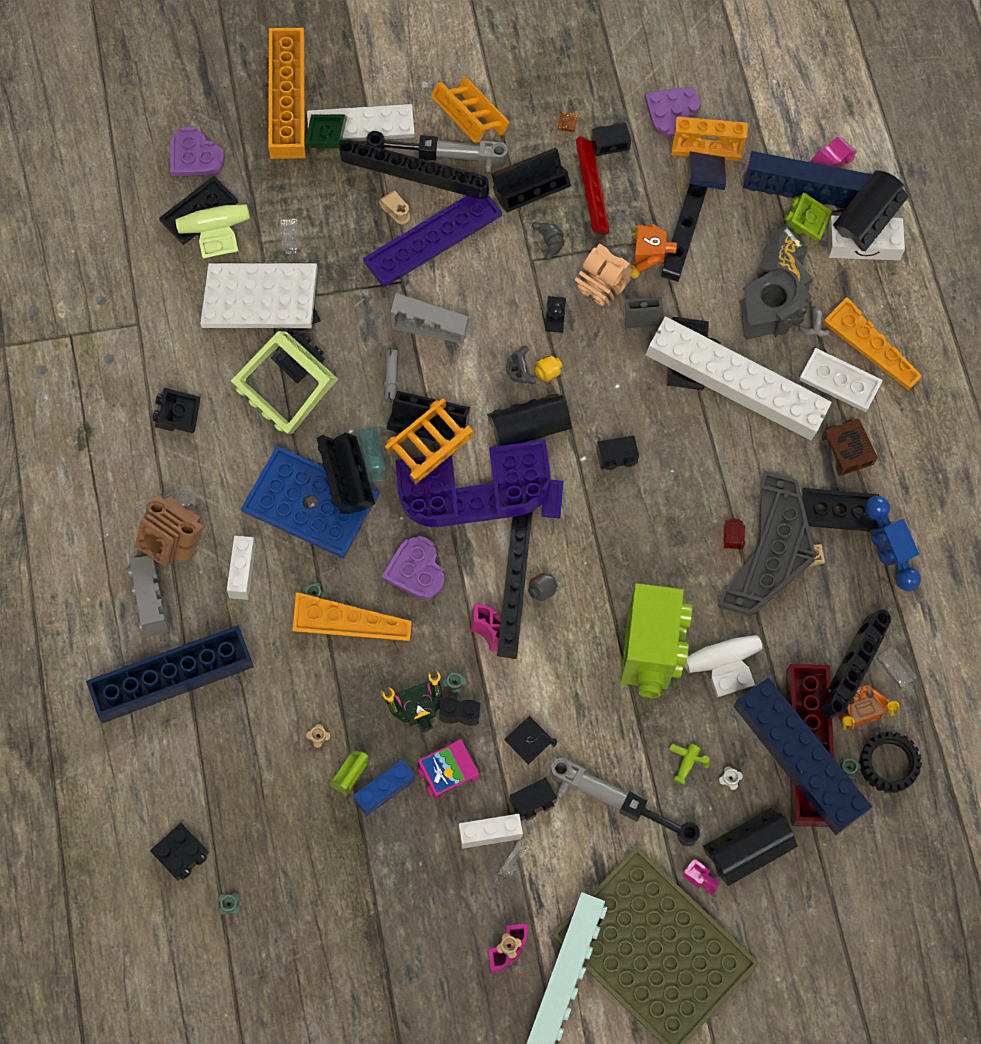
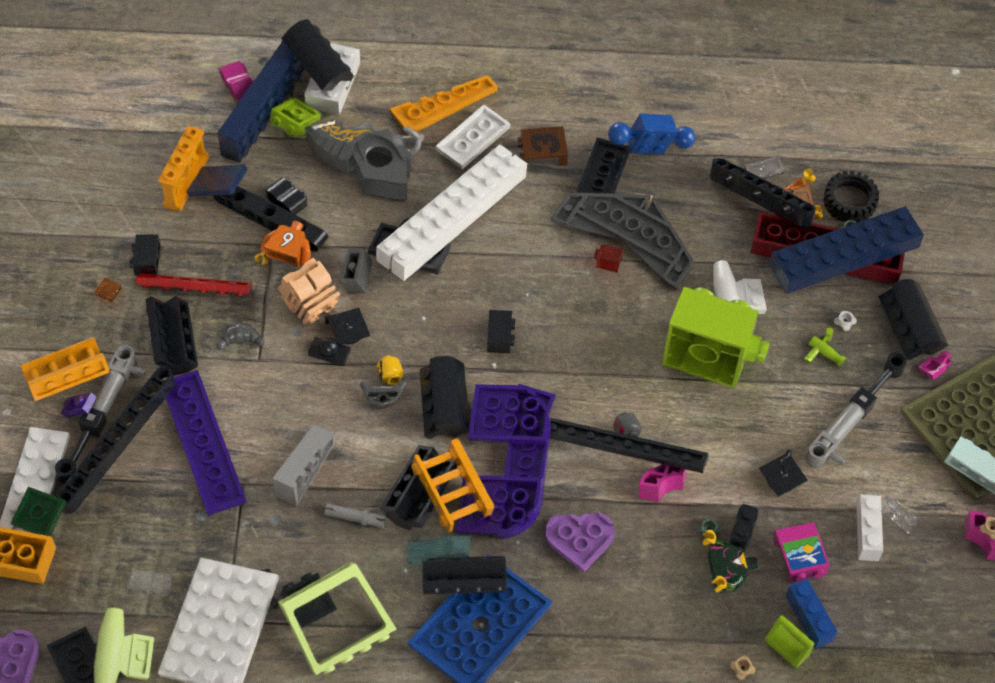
camera: 75 degrees left, 10 degrees down
(316, 587) = (584, 635): sand green plate -> none
(334, 618) = (619, 626): light orange wing -> none
(395, 207) = (151, 469): tan piece -> none
(439, 130) = (78, 405): none -> dark purple plate
(533, 799) = (842, 484): black brick -> none
(583, 321) = (348, 326): none -> black hat
(668, 105) = (130, 197): medium lavender plate -> none
(711, 235) = (286, 196): none -> black brick

